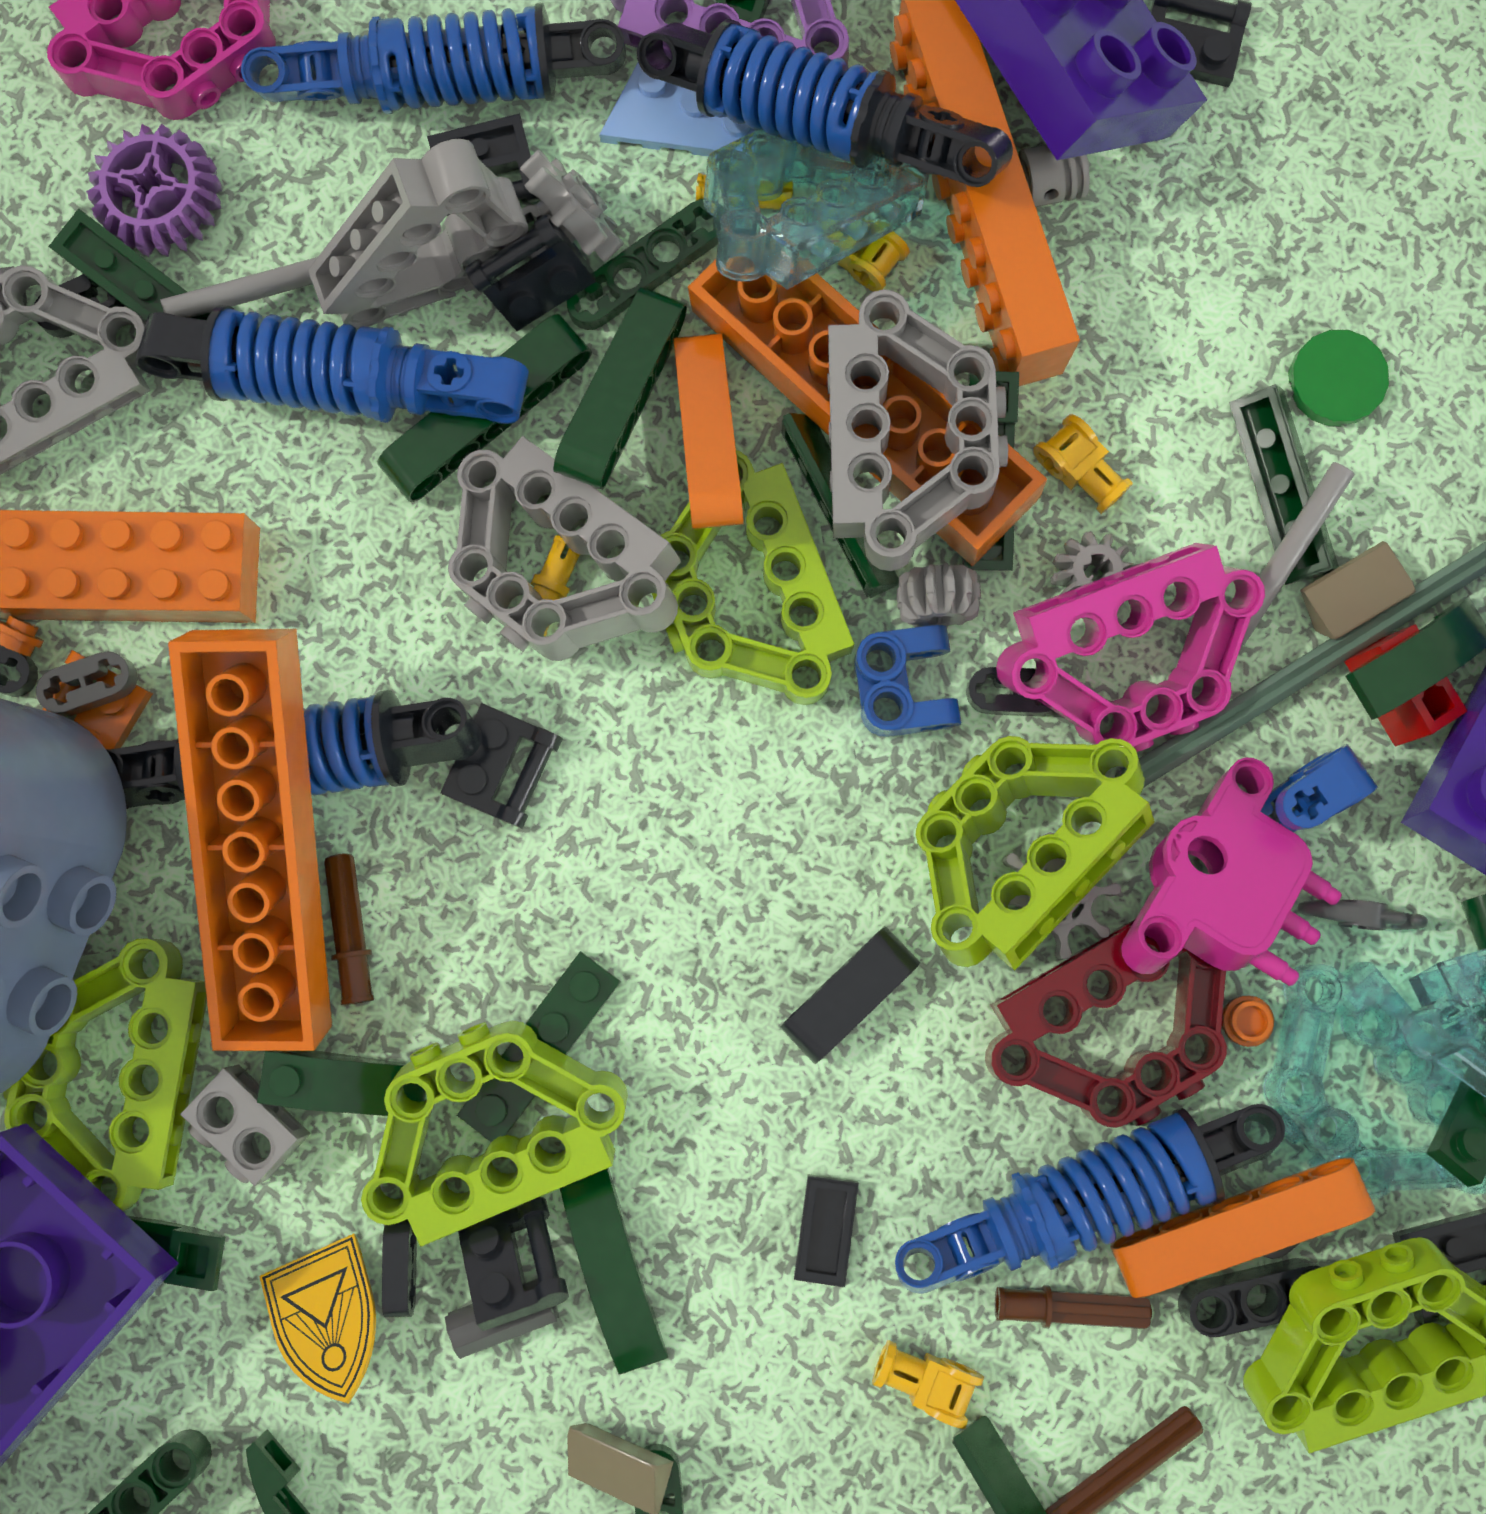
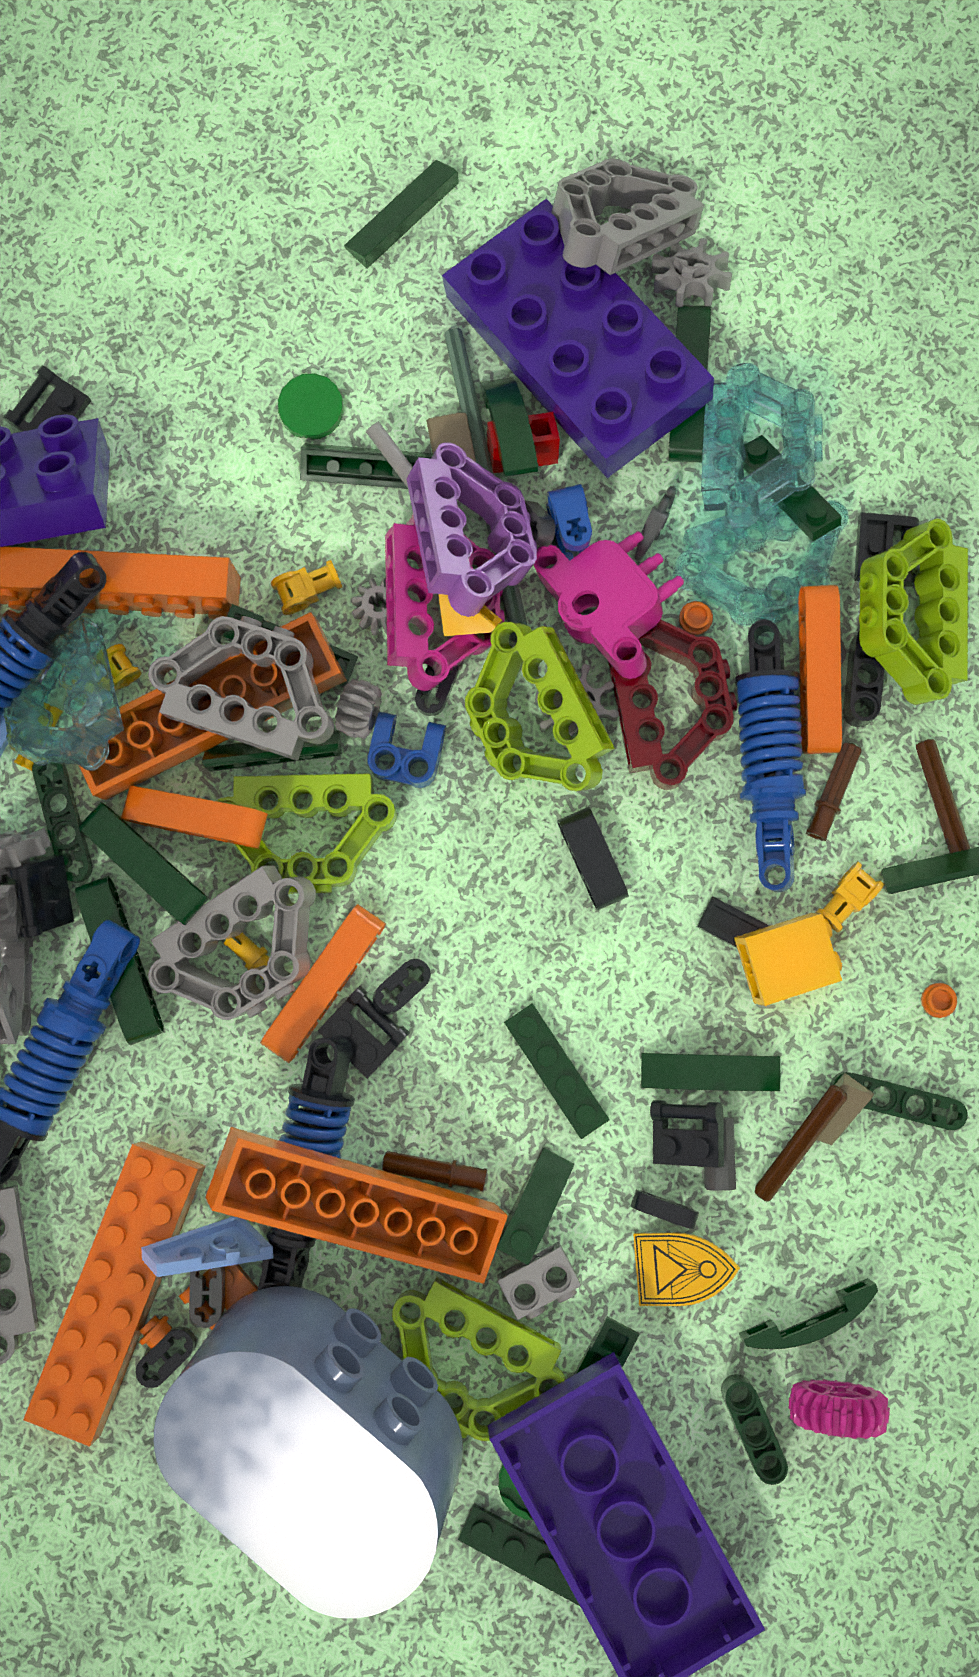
camera: 65 degrees left, 0 degrees up
(133, 658) = (208, 1247): none -> light blue wing
(545, 1072) = (574, 1069): lime brick -> none
(549, 686) = (322, 982): none -> orange beam
(554, 1432) = (800, 1143): none -> reddish brown axle
(585, 783) = (396, 980): none -> black beam
(807, 1325) = (789, 958): none -> yellow brick
(1054, 180) = (110, 538): light grey piece -> none
(1128, 687) = (457, 624): none -> yellow slope
(1243, 607) = (439, 524): none -> medium lavender brick
(1294, 742) = (541, 524): none -> dark grey beam

